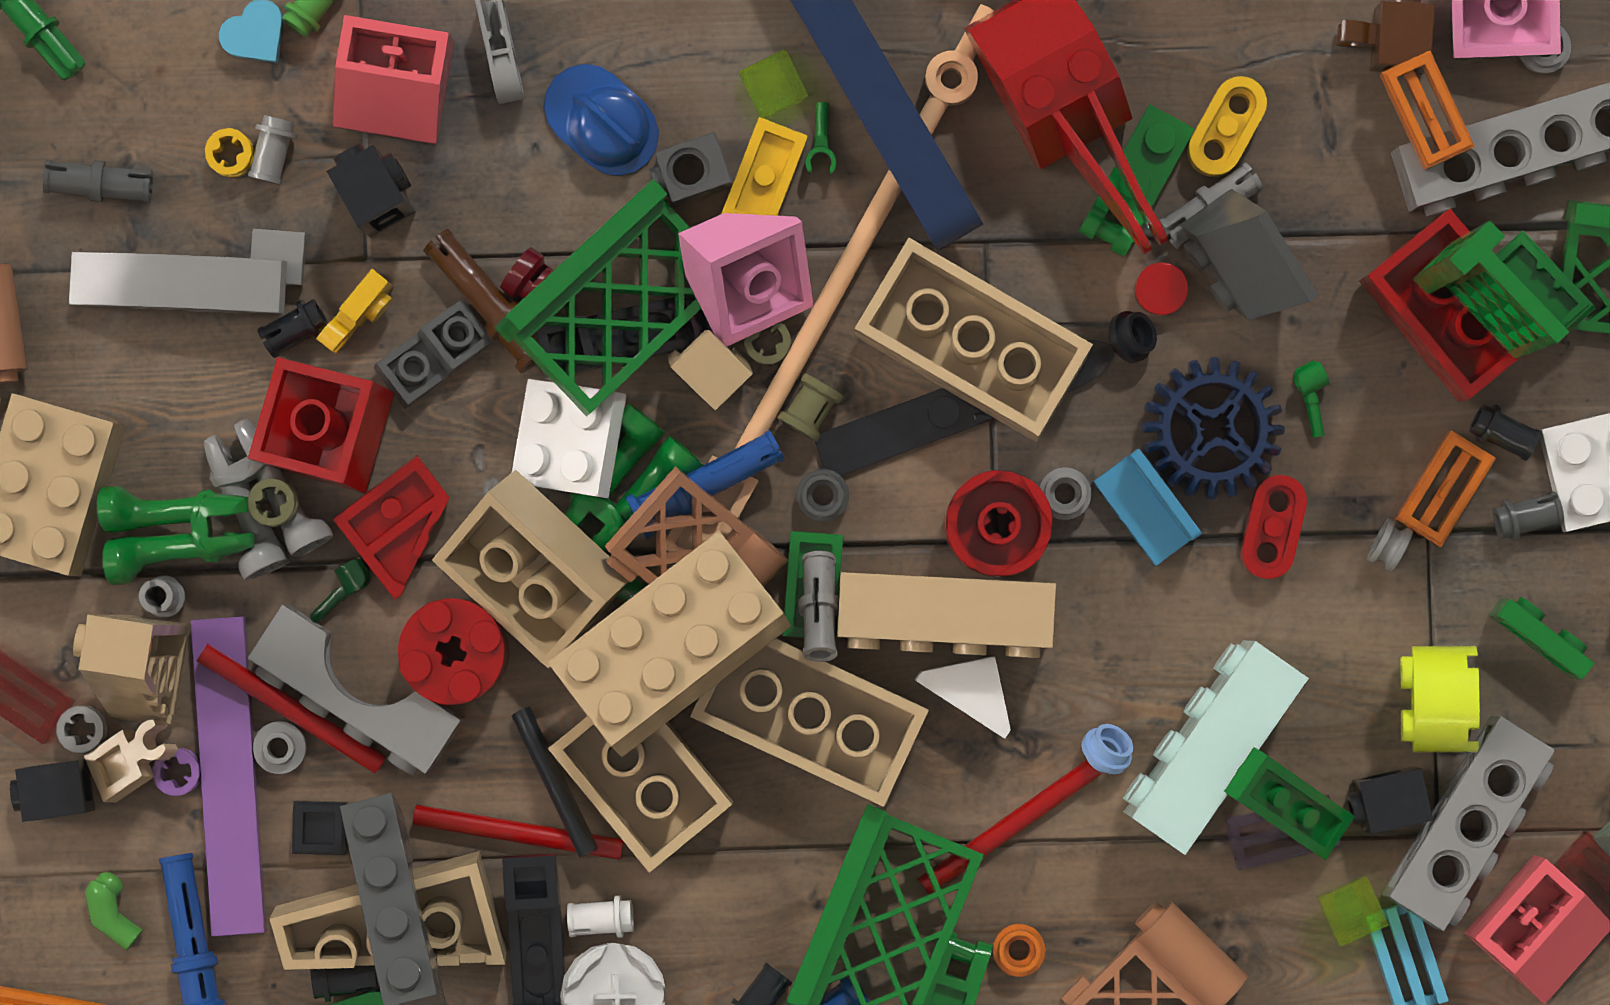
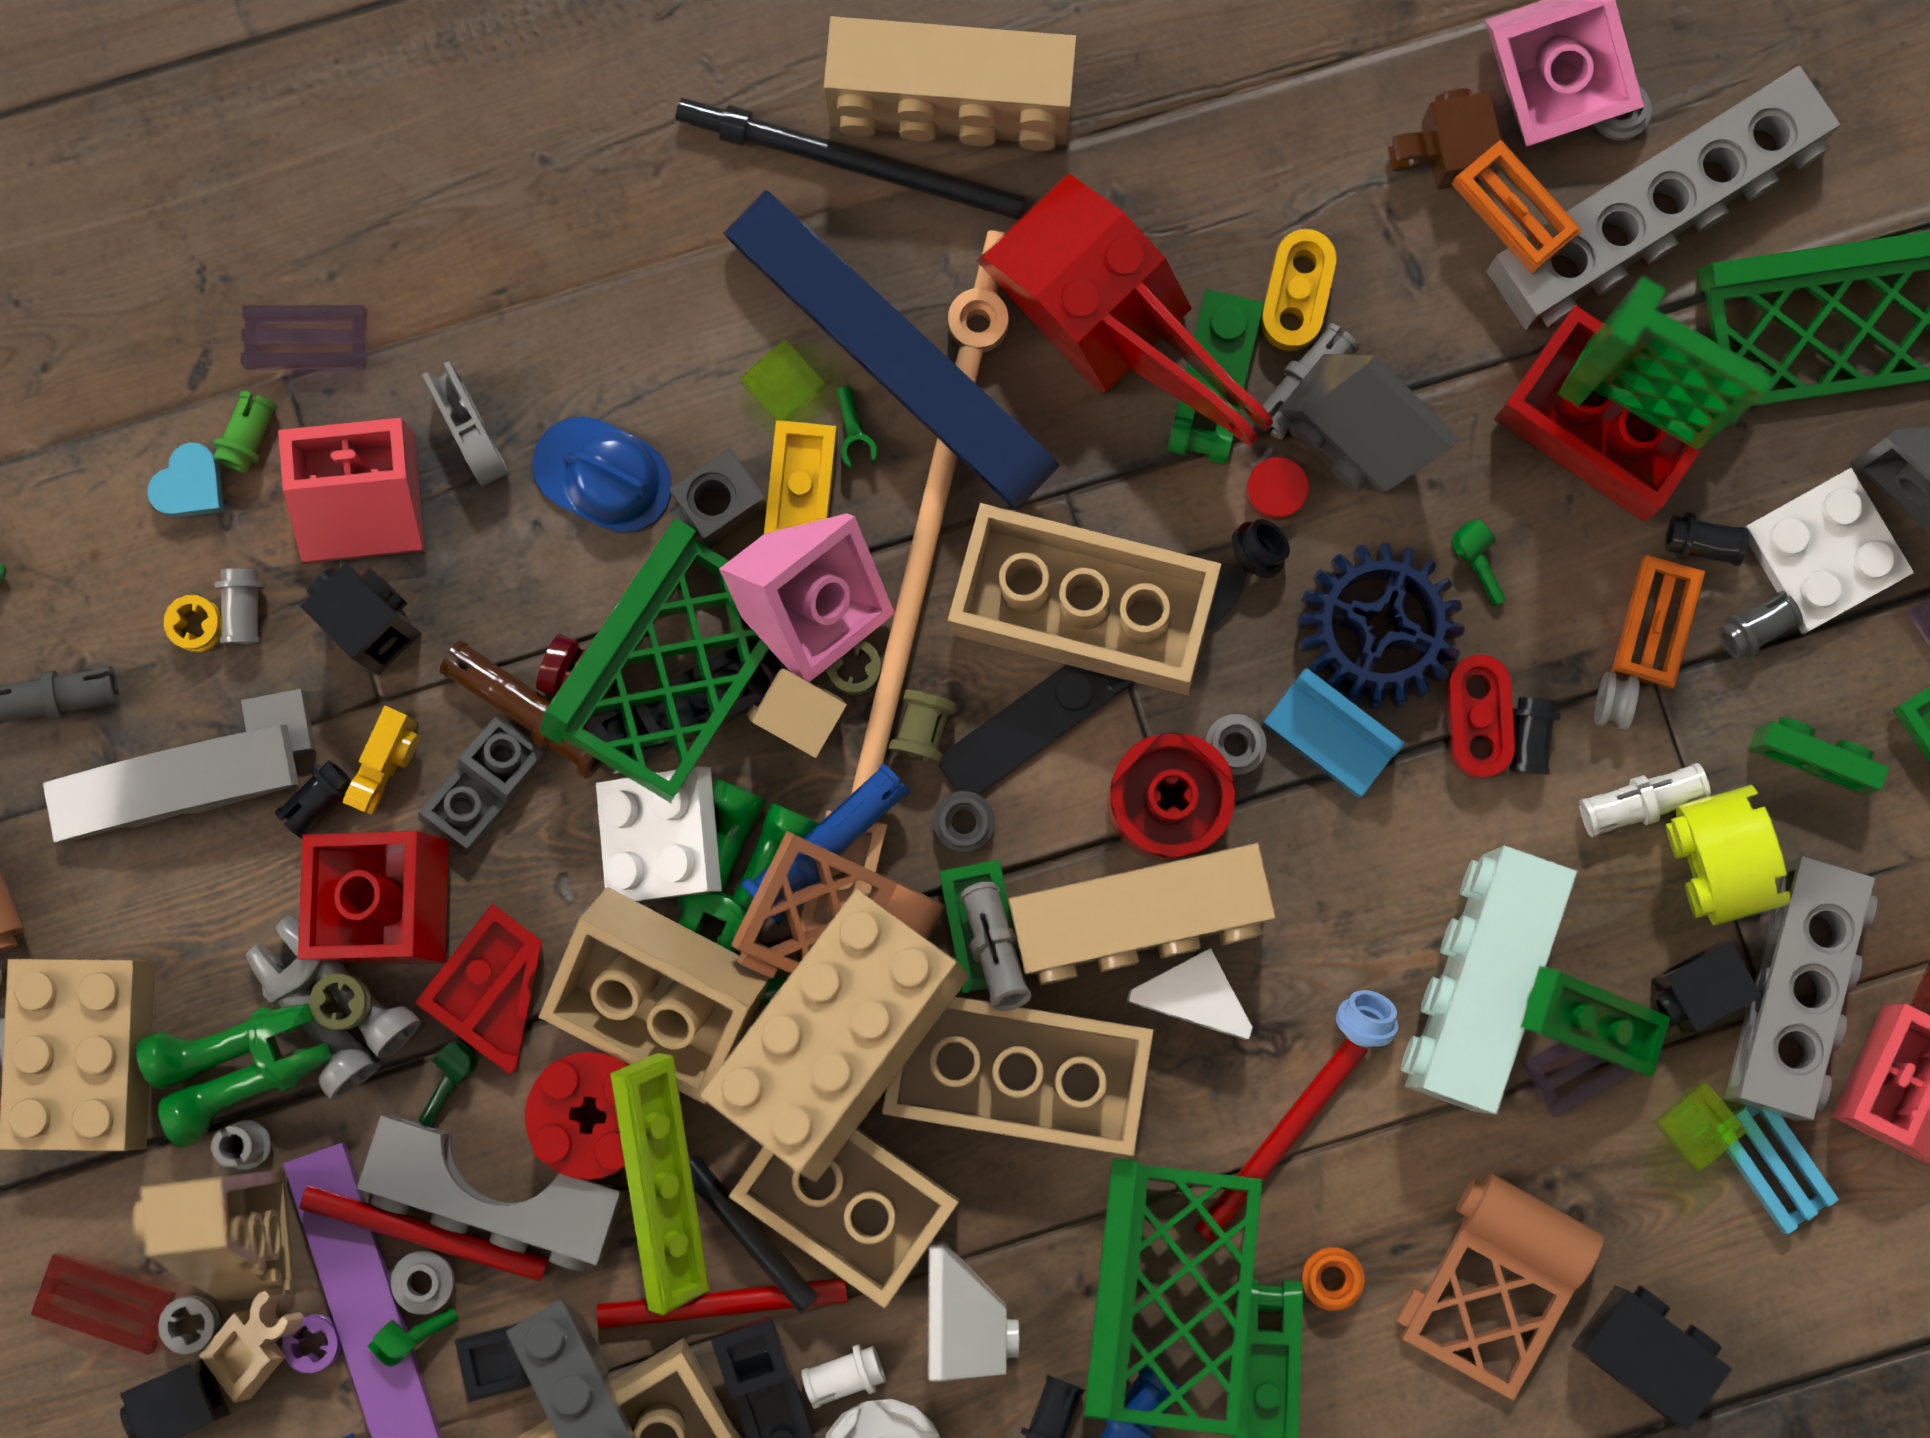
camera: 15 degrees left, 5 degrees down
(244, 790) = (394, 1344): none -> green hand
(495, 721) = (660, 1182): none -> lime tile
(712, 900) = (965, 1321): none -> white slope
(1312, 554) = (1533, 735): none -> black pin
(1388, 633) = (1643, 800): none -> white pin

